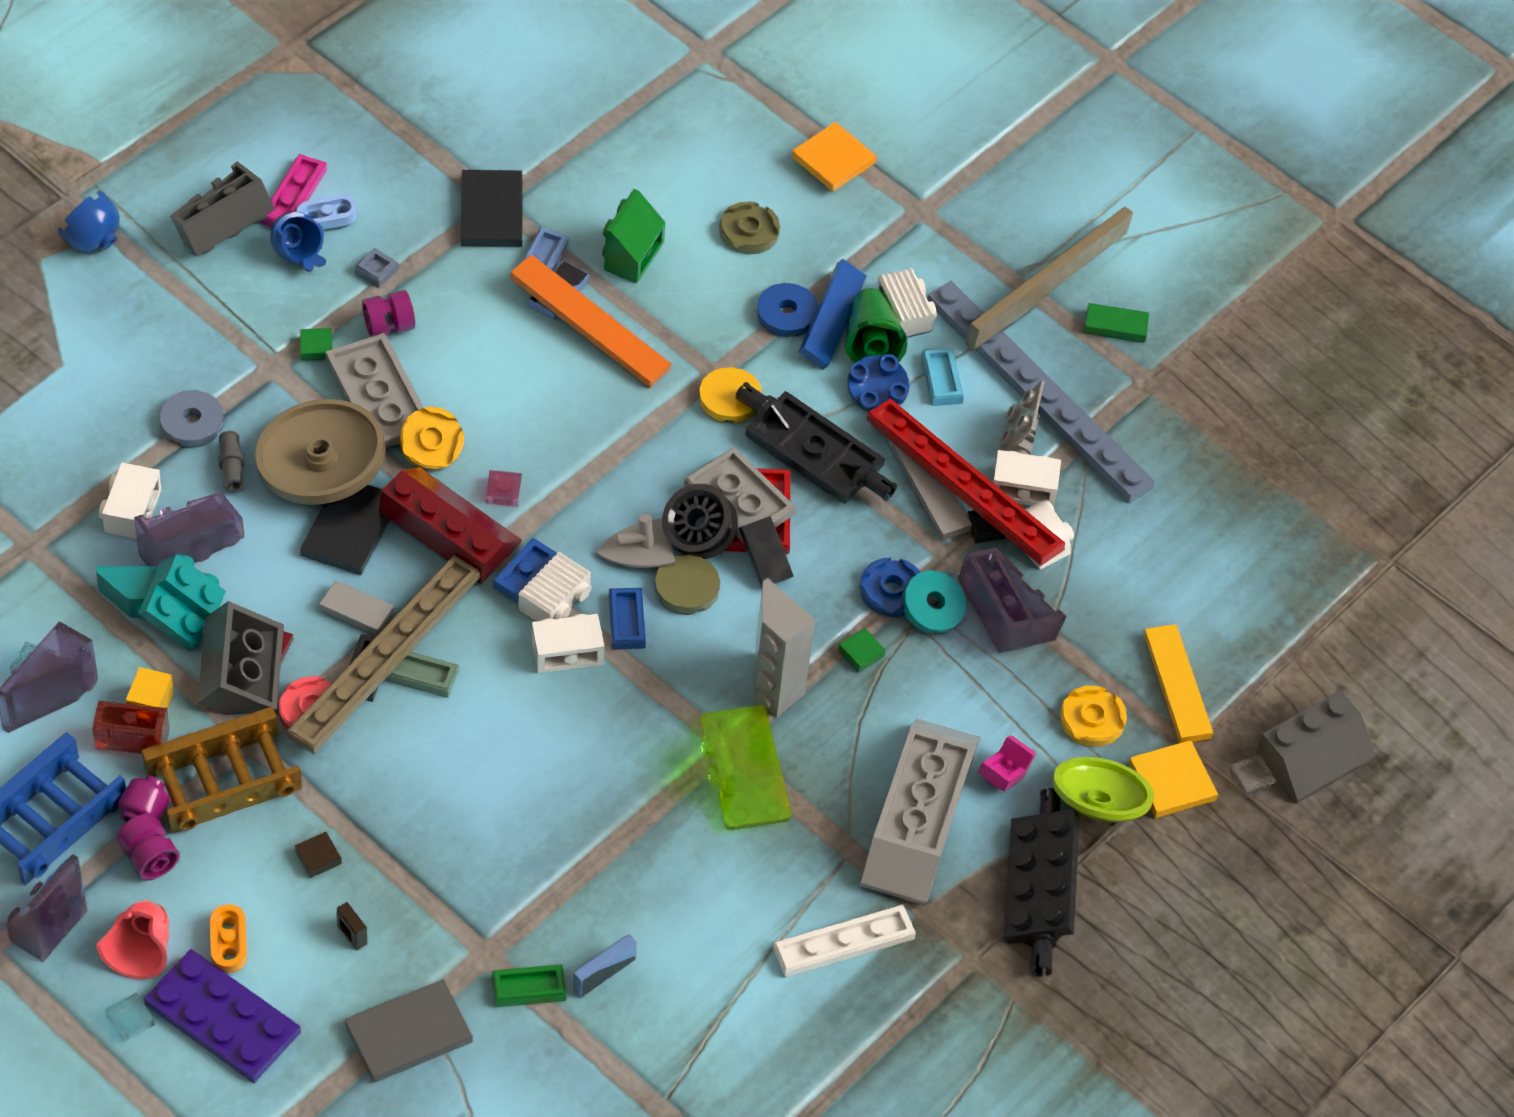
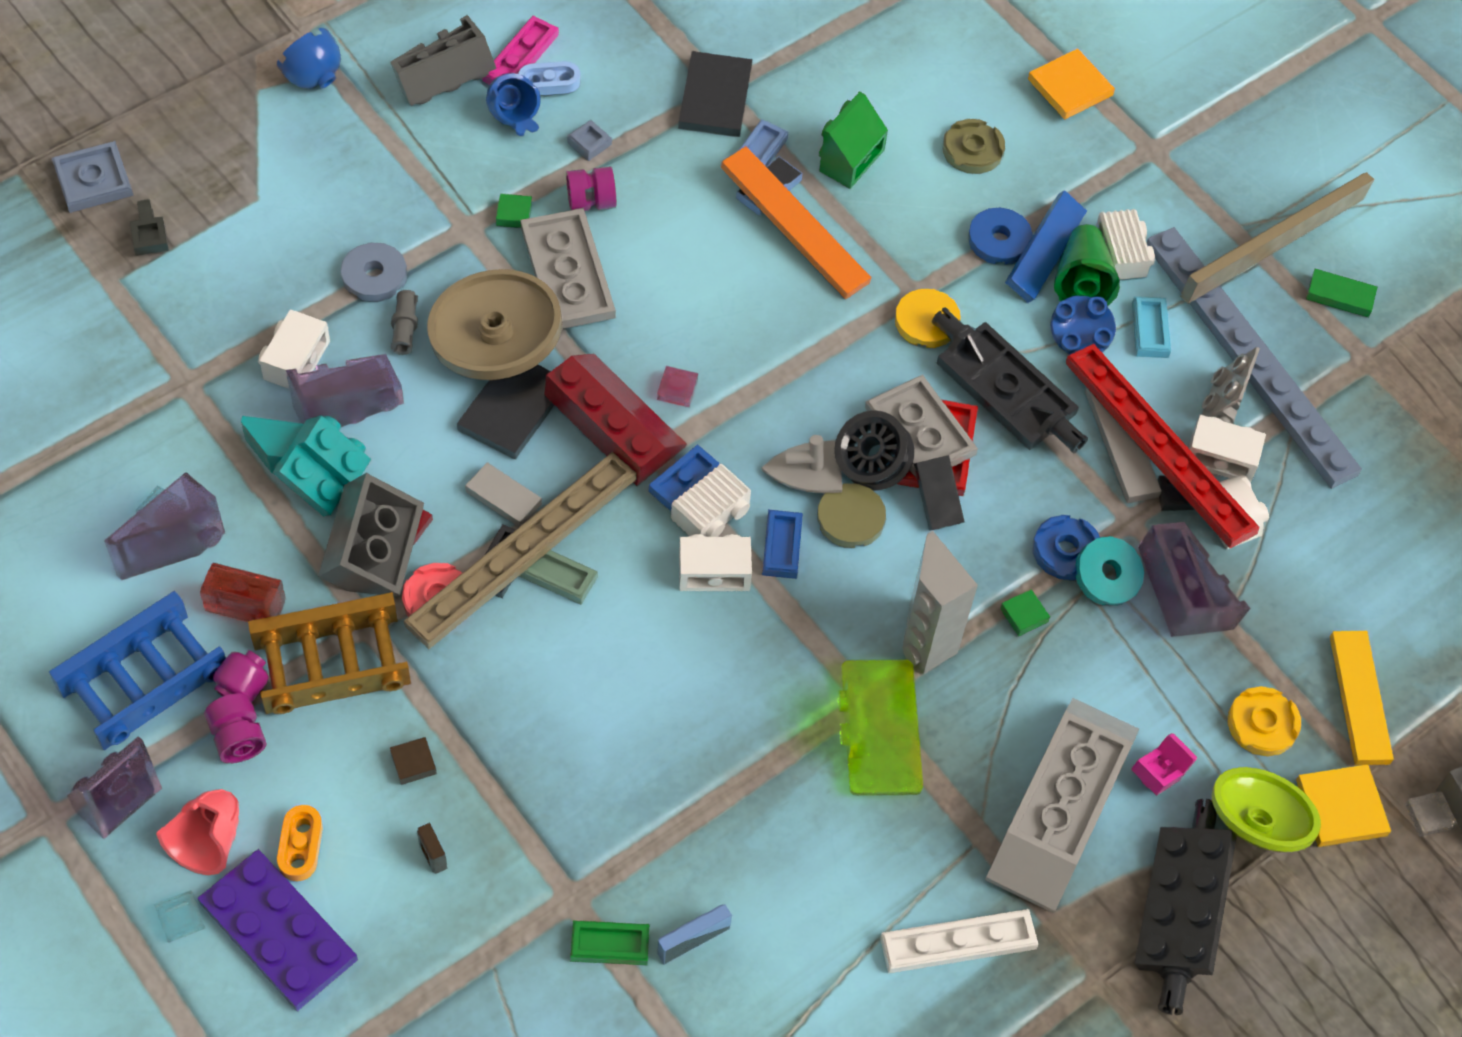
camera: 10 degrees right, 5 degrees up
(151, 689) = (272, 557): yellow brick -> none
(408, 1030) = (472, 976): dark grey tile -> none
(431, 438) = (611, 324): yellow tile -> none

